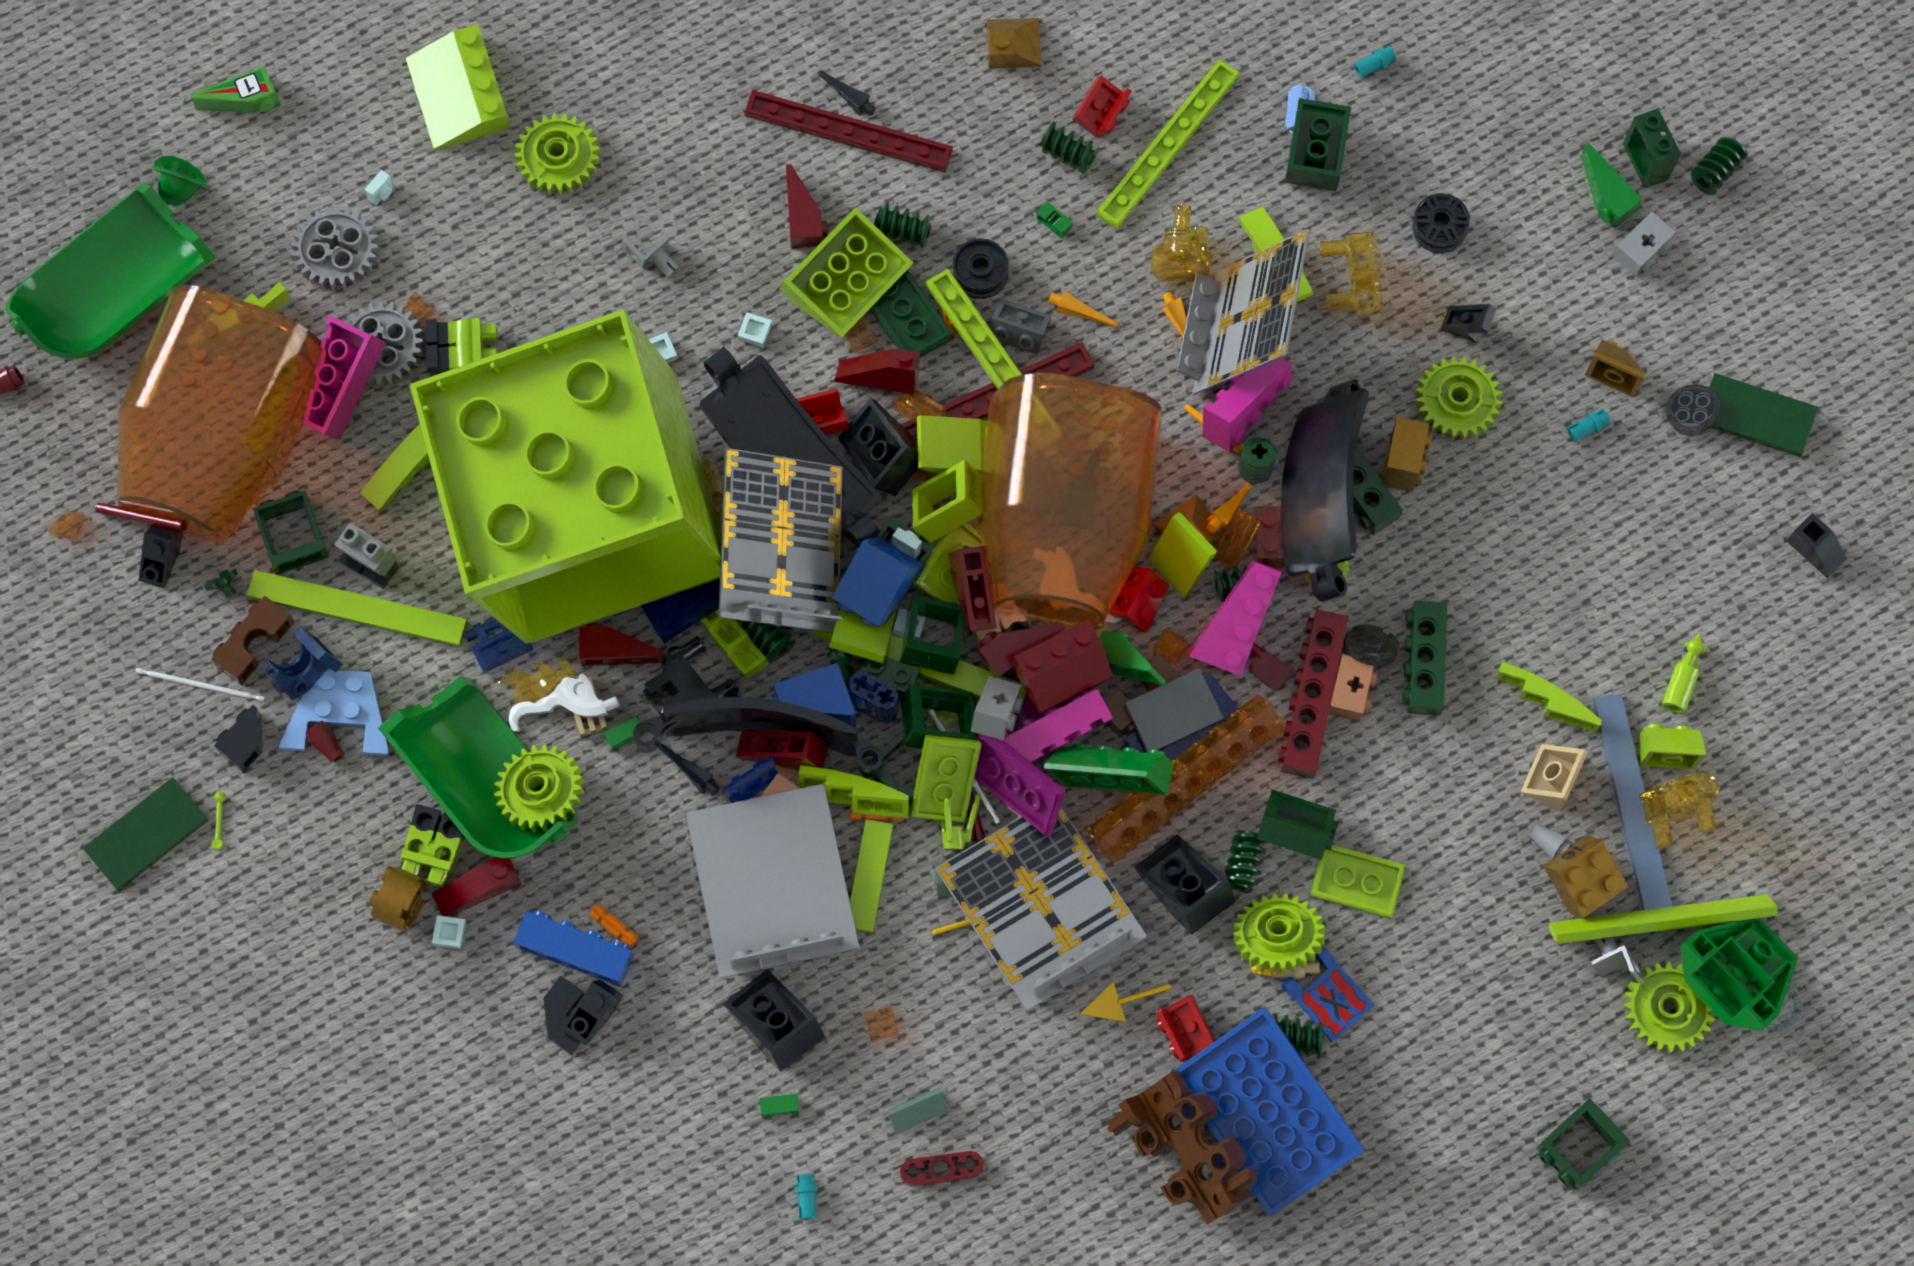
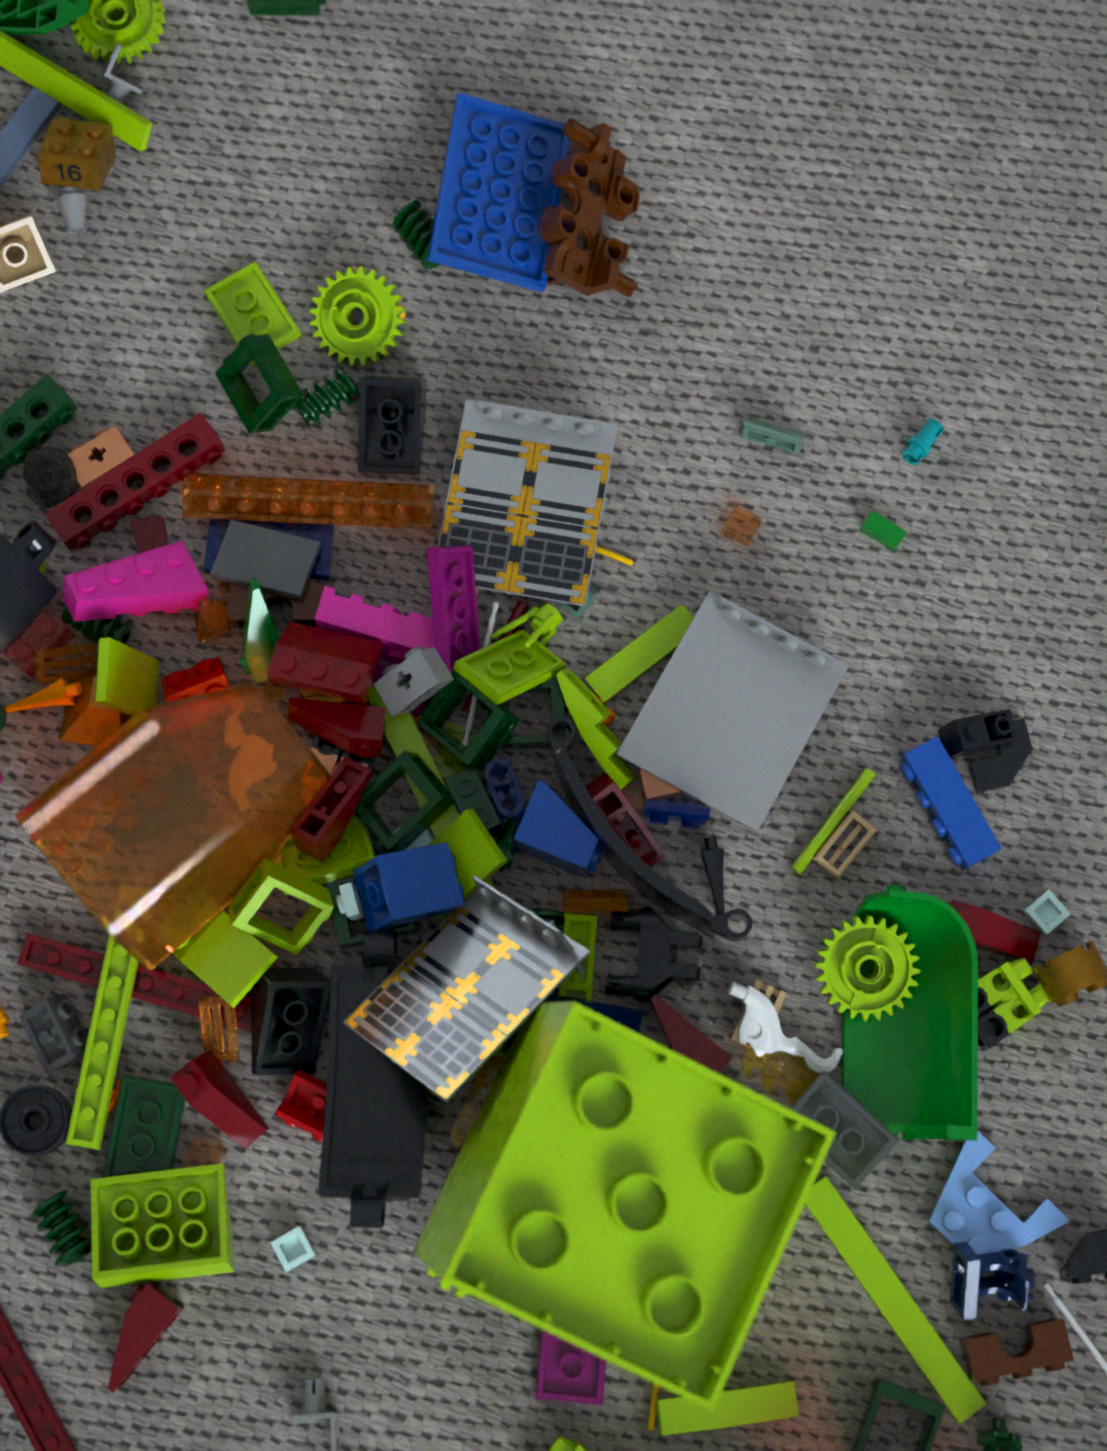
camera: 135 degrees left, 5 degrees up
(324, 740) = (1022, 1188): dark red cone -> none
(365, 551) = (848, 1335): light grey hips -> none
(472, 670) = (859, 1137): none -> dark grey tile
(613, 925) = (896, 797): orange axle -> none
(621, 734) = (746, 959): green piece -> none
(623, 888) = (828, 865): none -> tan tile
(643, 874) = (832, 821): none -> lime bar
(664, 347) = (398, 1308): light aqua plate -> none
(758, 681) = (595, 900): none -> clear orange tile
(774, 1020) = (829, 600): black slope -> none
(932, 1160) = (770, 370): dark red beam -> none
(1108, 1004) = (542, 388): yellow piece -> none
(1111, 769) = (364, 549): green slope -> none
(1185, 1028) = (501, 312): red bracket -> none
(1331, 998) = (364, 241): flag -> none

